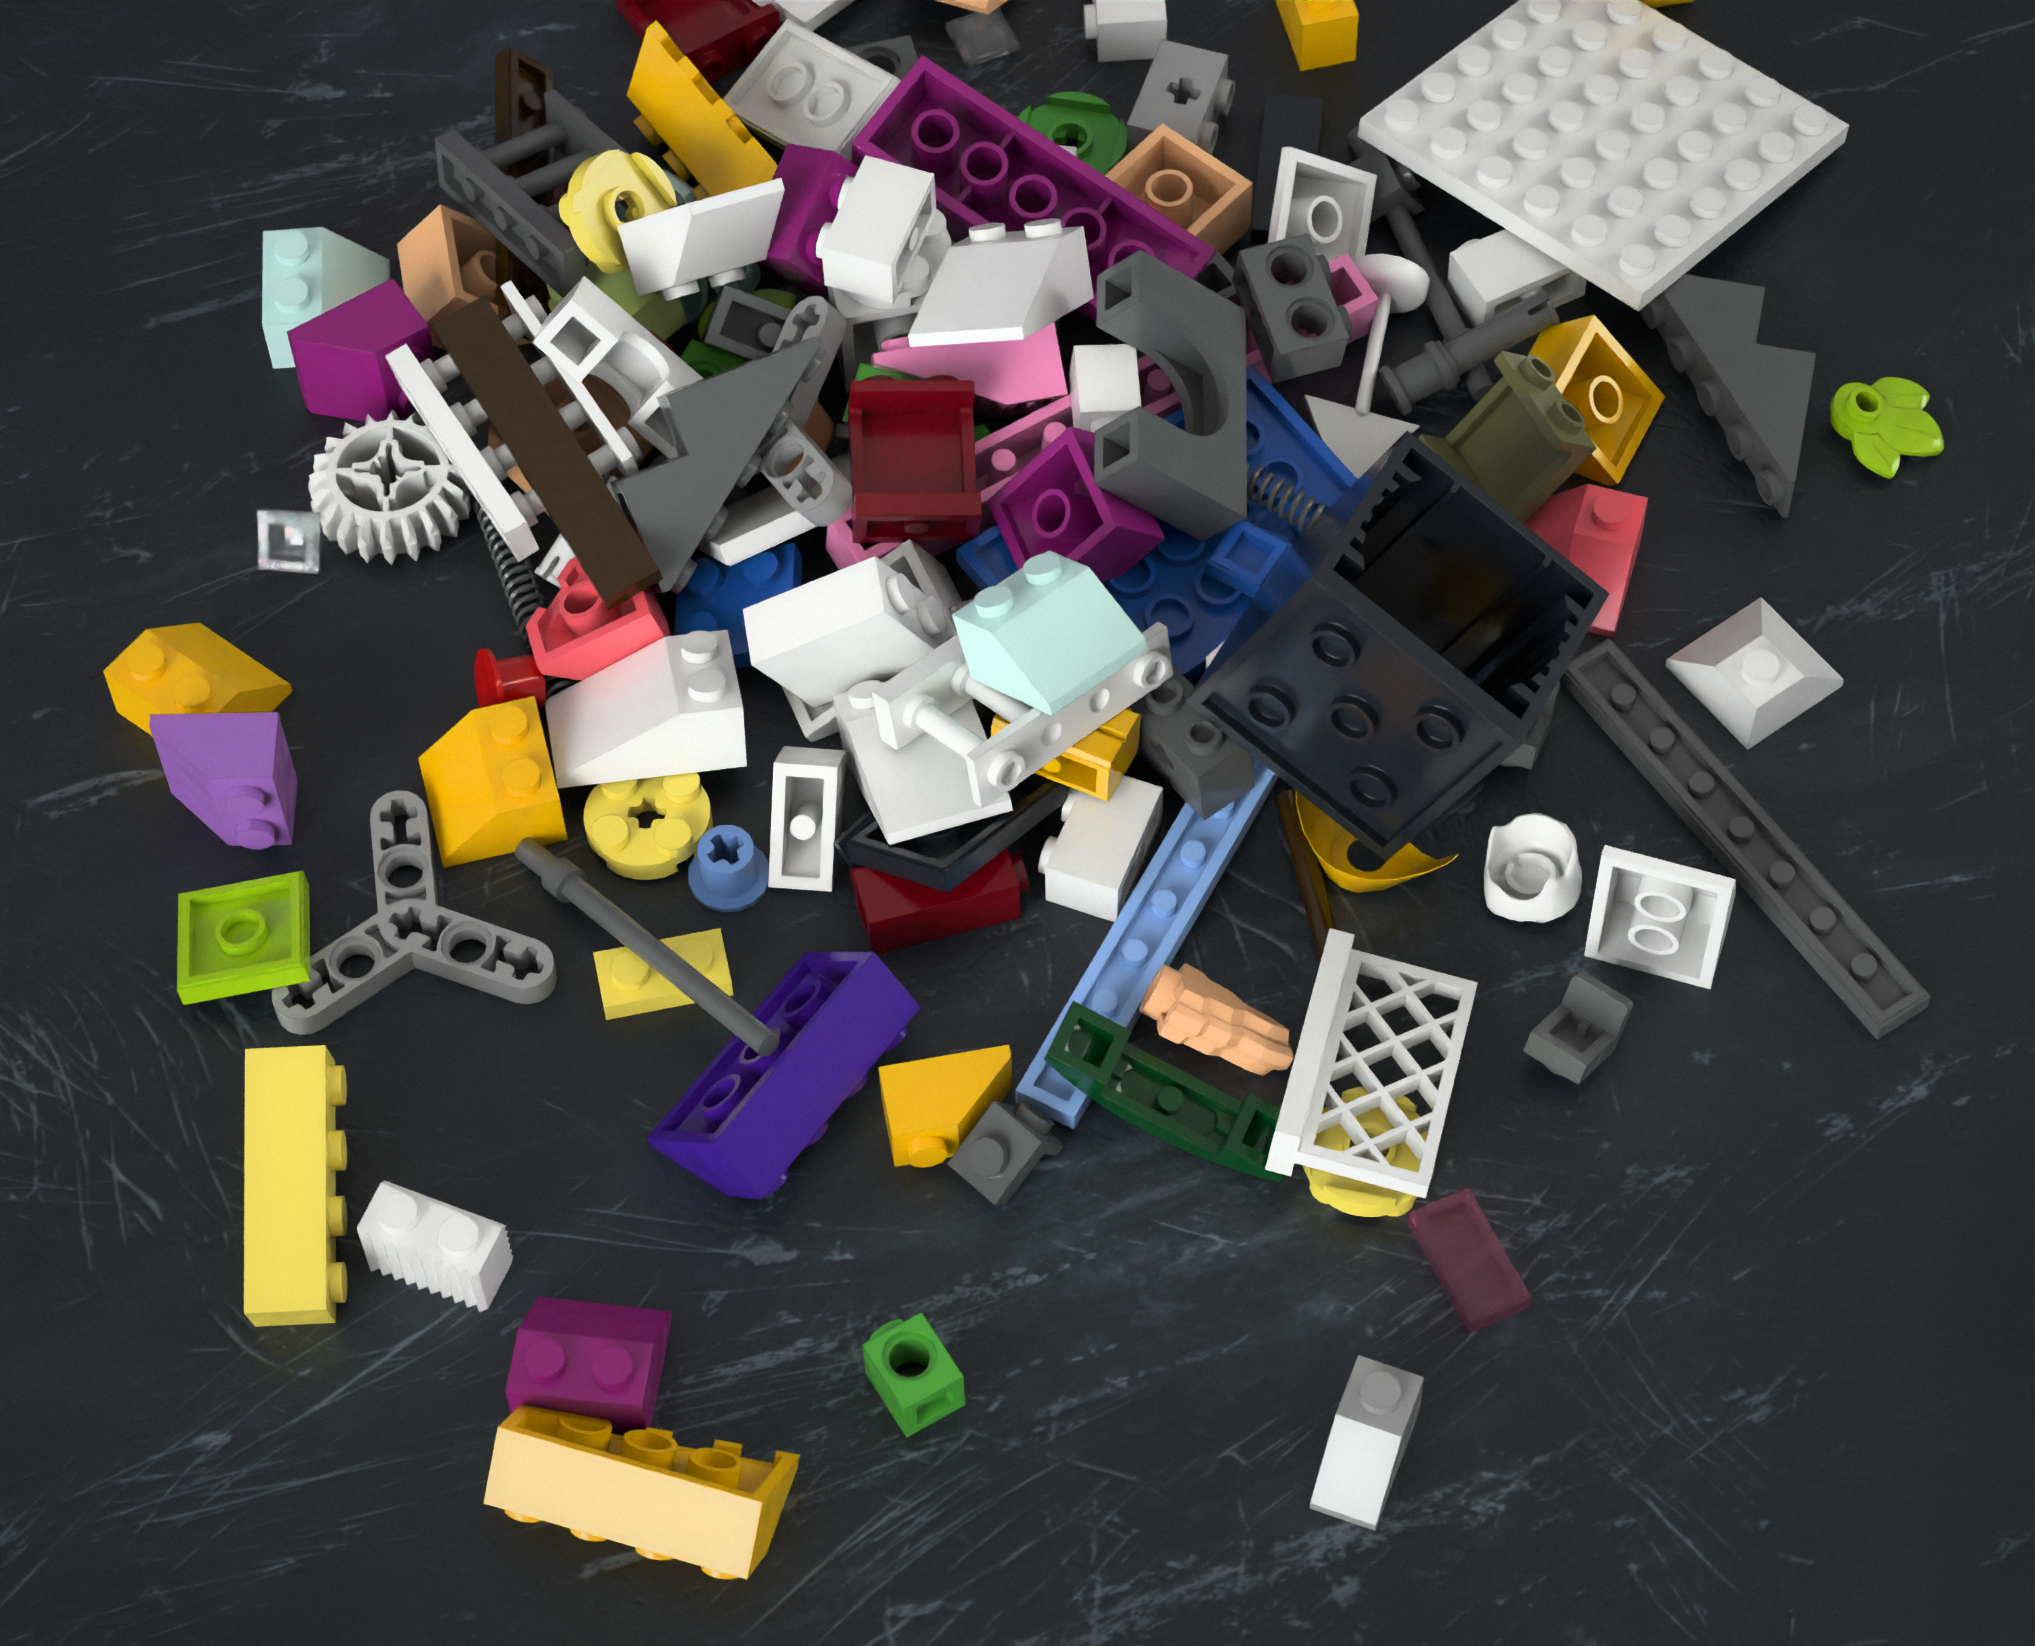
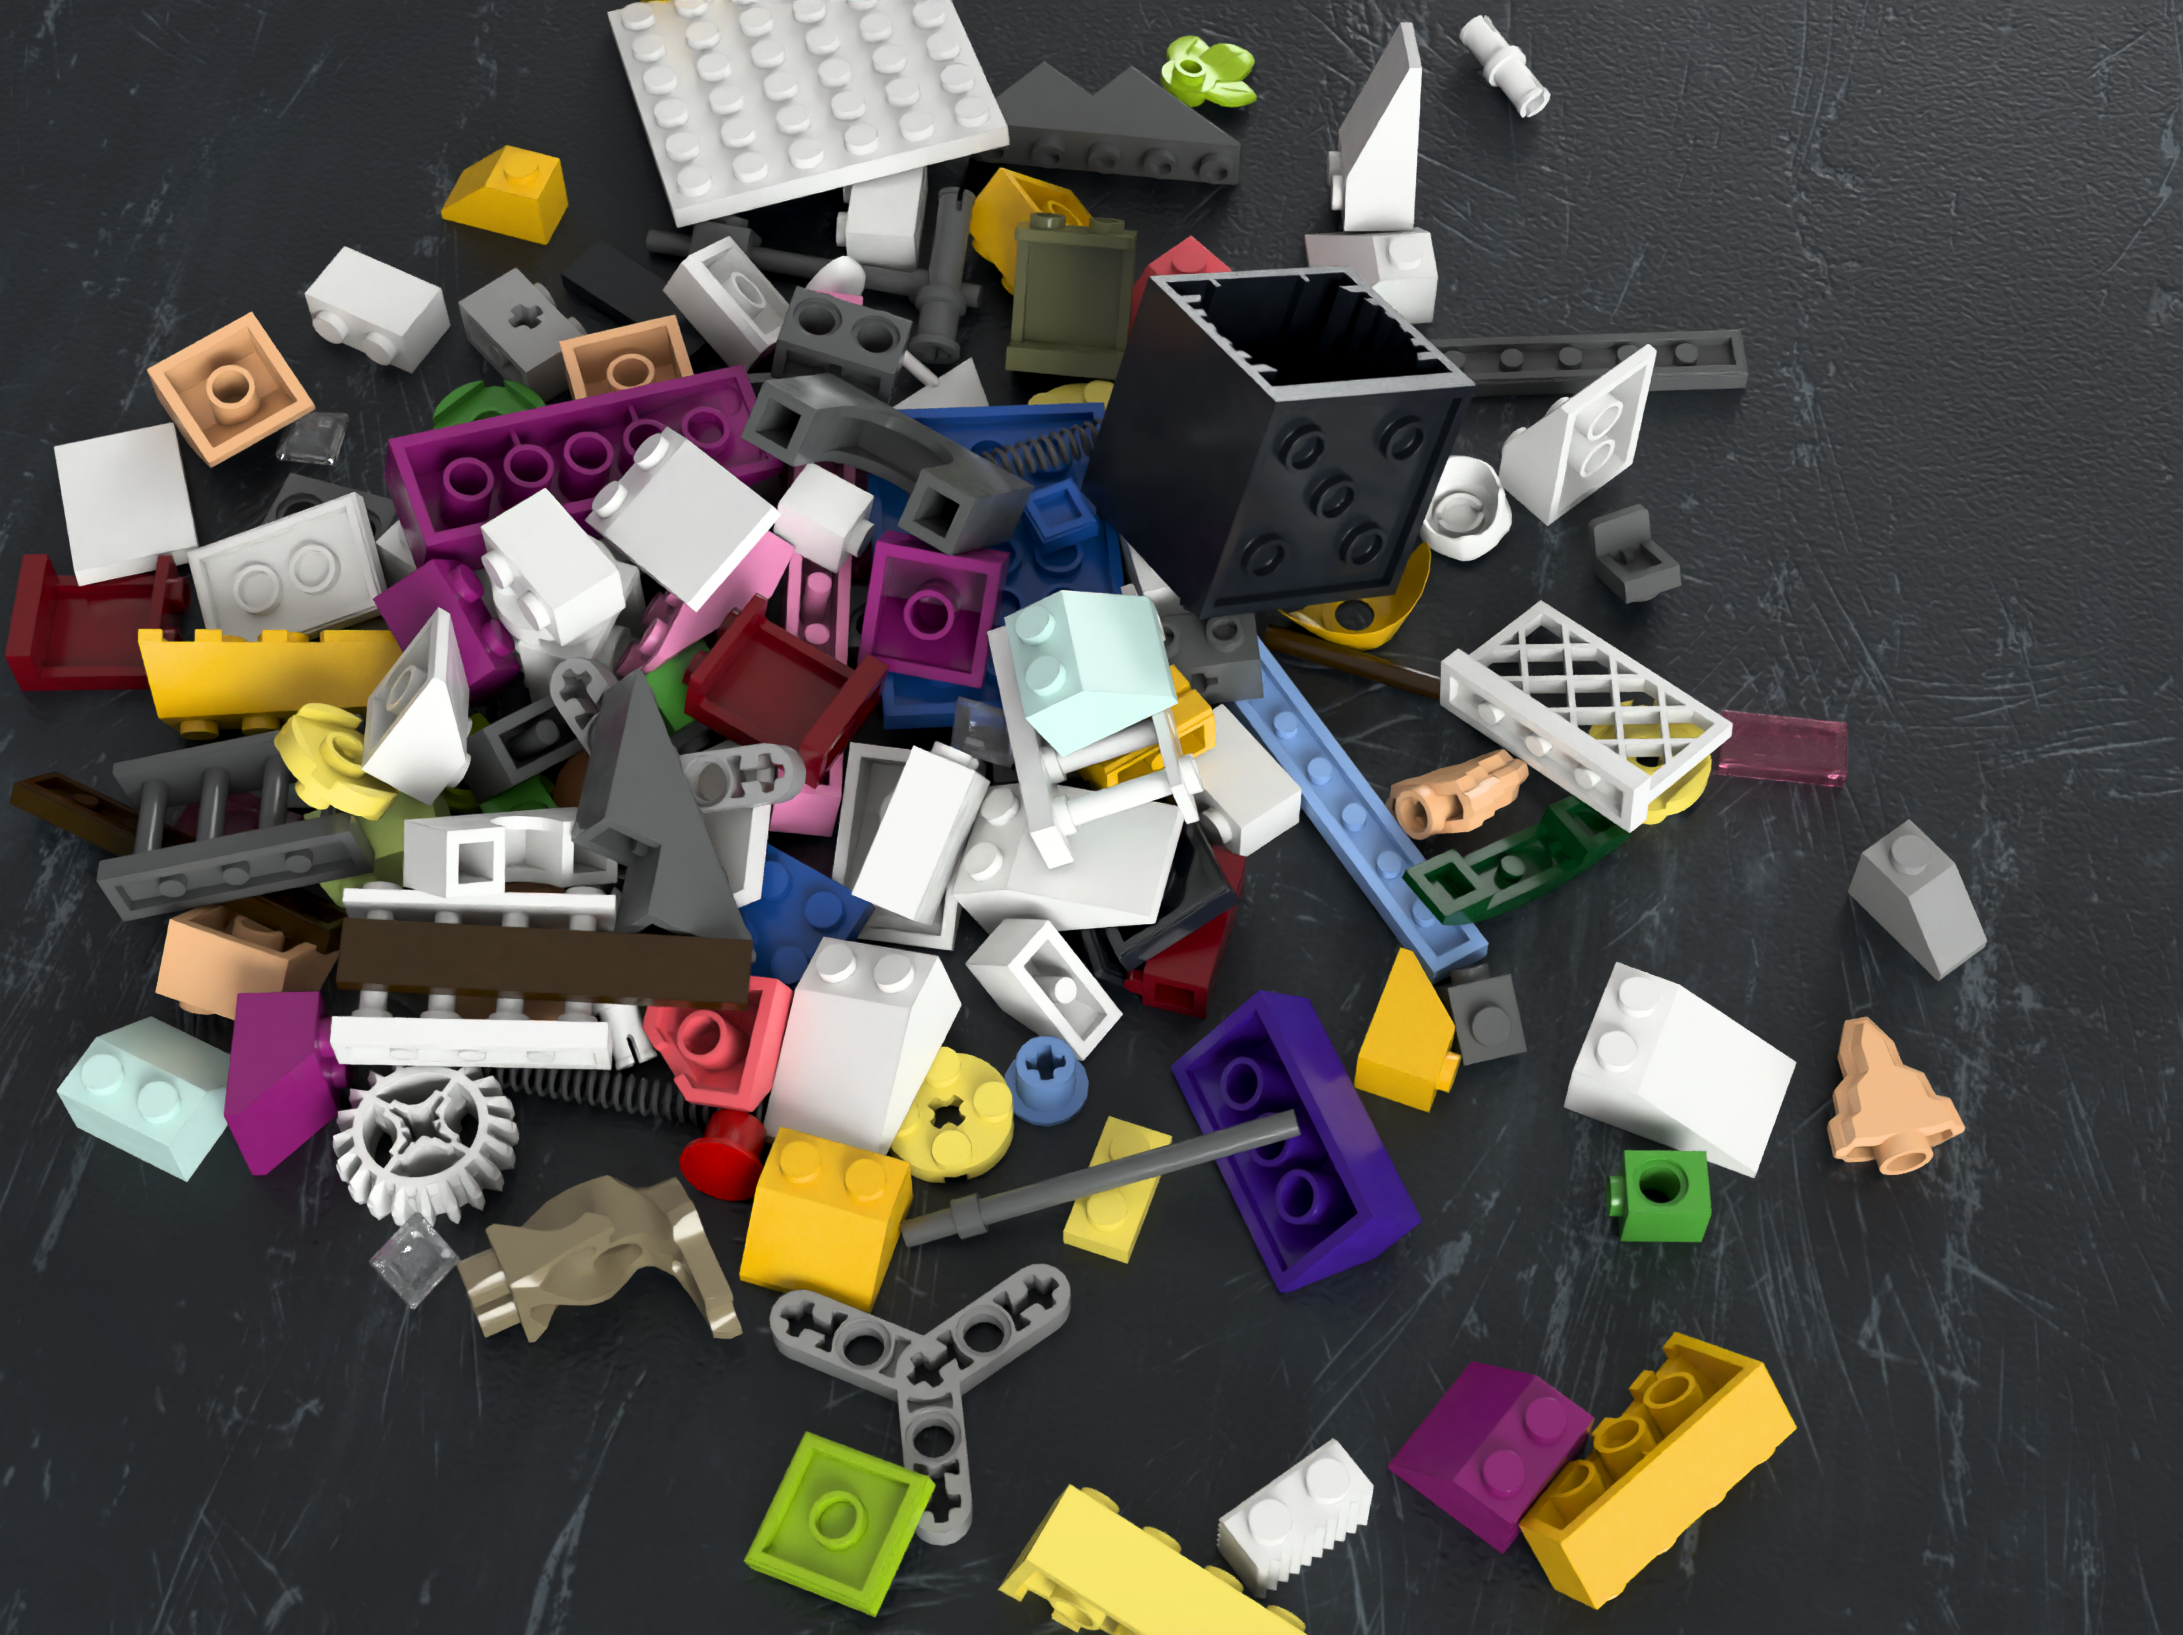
camera: 60 degrees left, 0 degrees up
(189, 673) = (524, 1432): yellow slope -> none
(231, 773) = (667, 1436): medium lavender slope -> none
(355, 638) = (587, 1249): none -> dark tan hips
(1050, 1330) = (1678, 1072): none -> white slope
(1131, 1512) = (1885, 1106): none -> light nougat rock
(1869, 589) = (1378, 143): none -> white slope

